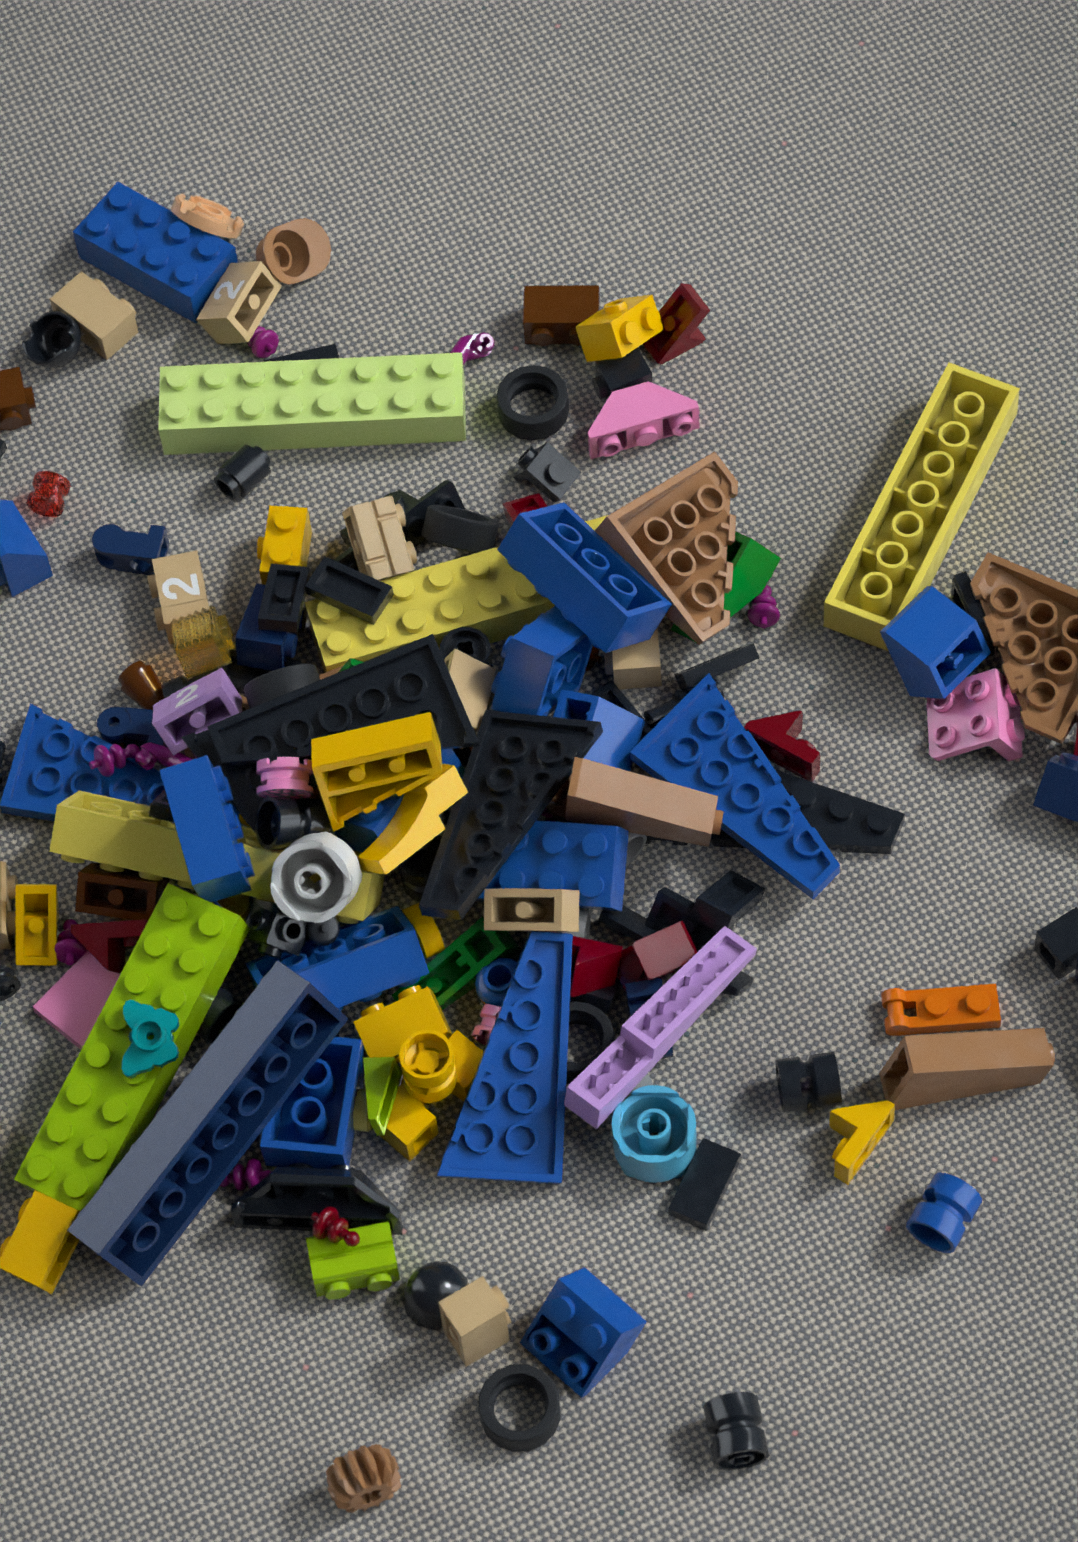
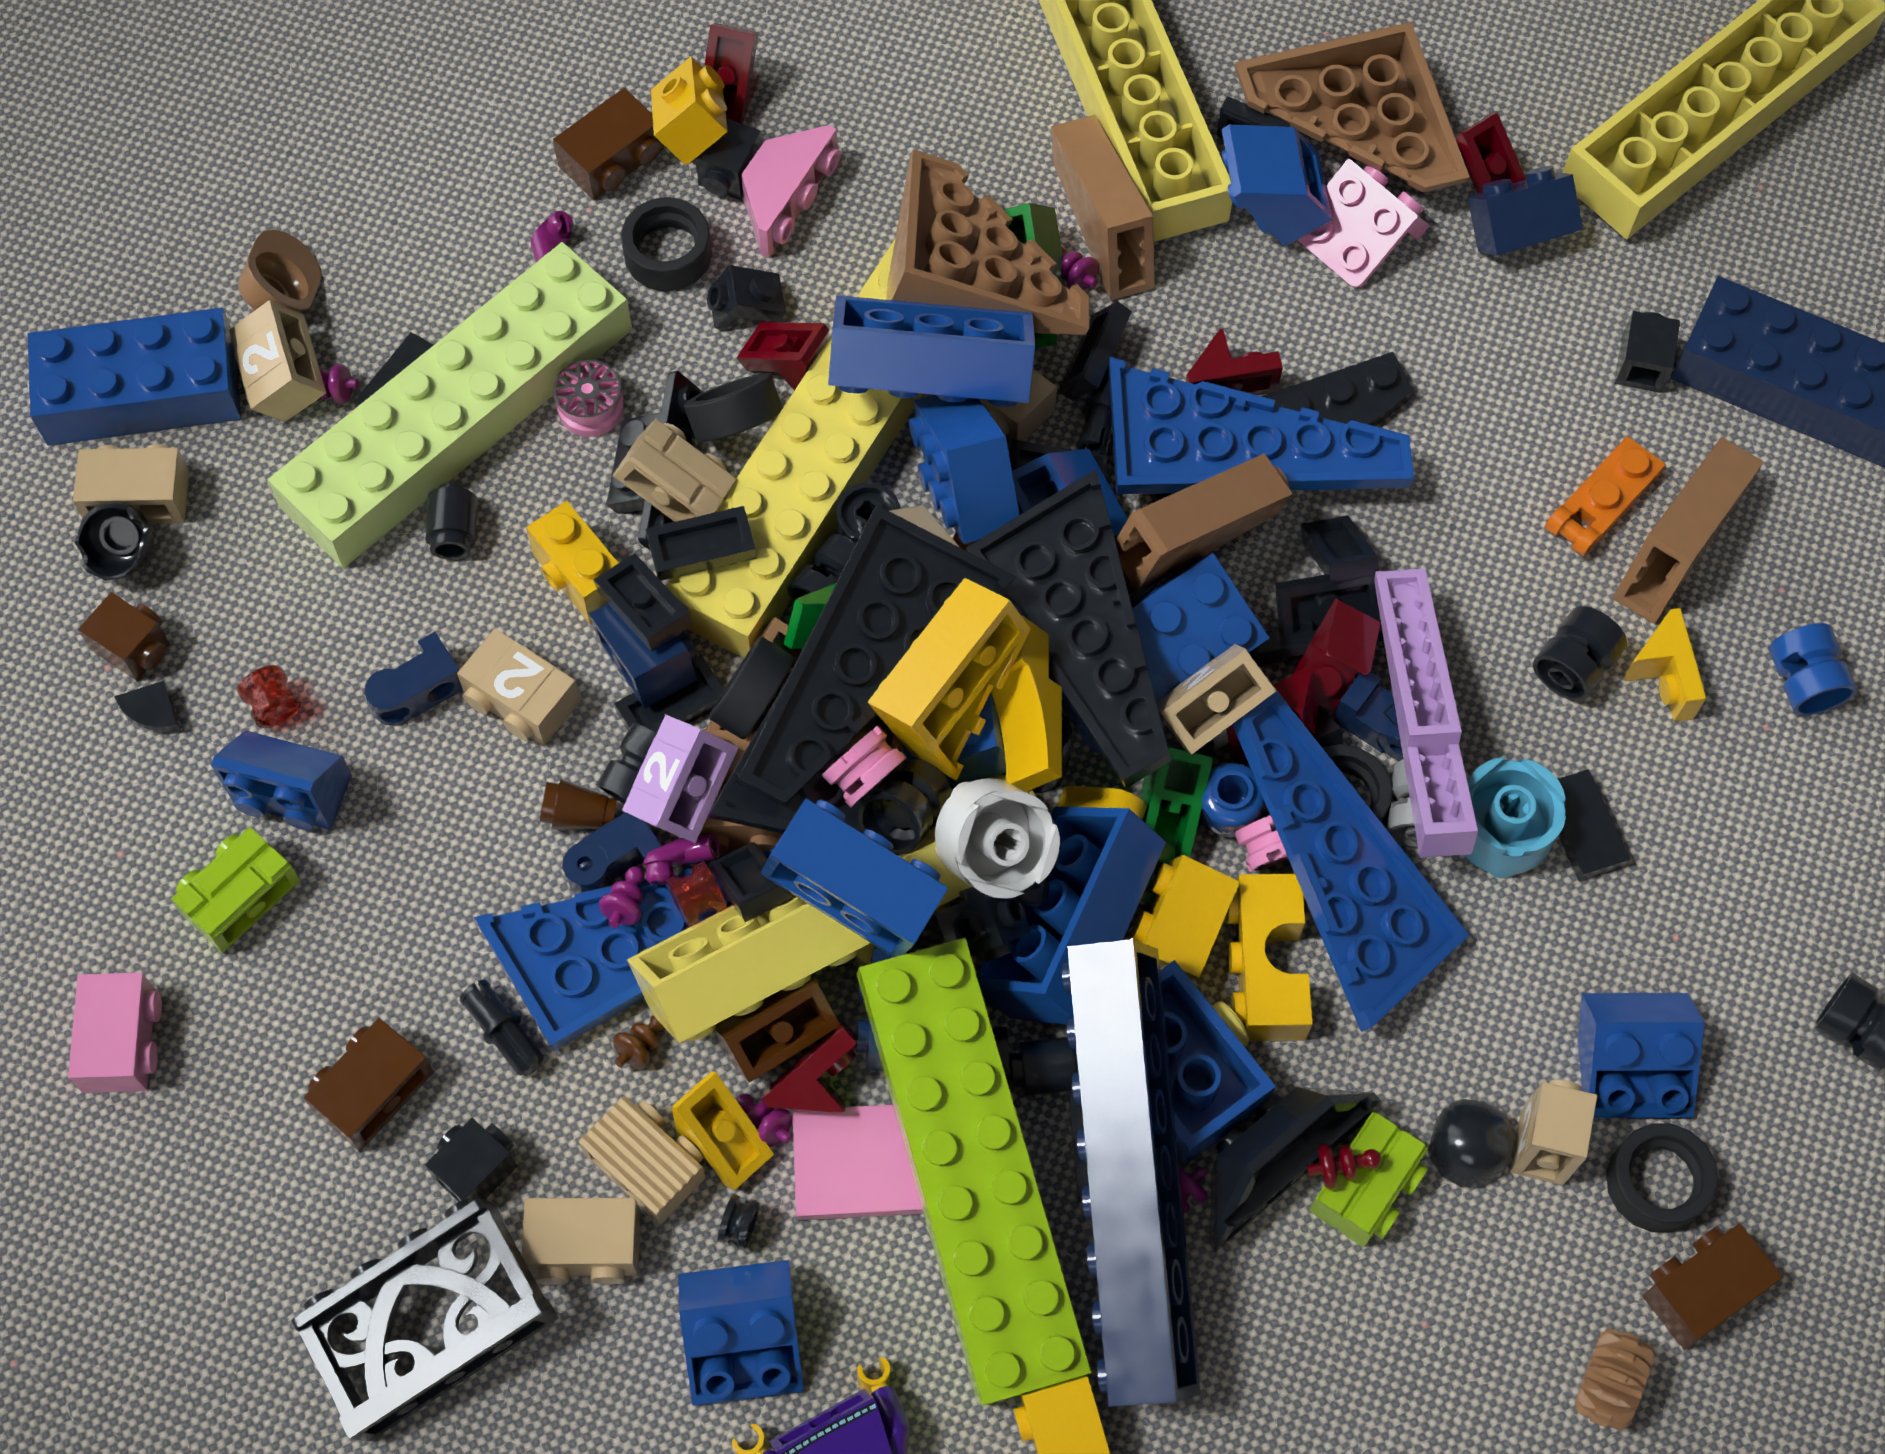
camera: 50 degrees left, 5 degrees up
(40, 846) = (634, 1047): none -> reddish brown hair
(145, 784) = (695, 894): none -> clear red wheel
(145, 1053) = (1006, 1159): teal animal -> none
(202, 641) = (603, 709): clear yellow brick -> none
(207, 216) = (155, 302): light nougat tile -> none
(381, 1085) = (1228, 984): lime piece -> none
(393, 462) = (595, 385): none -> bright pink wheel
(428, 1066) = (1269, 929): yellow wheel -> none
(479, 1486) = (1710, 1285): none -> reddish brown brick
(803, 593) = (1105, 206): none -> medium nougat slope

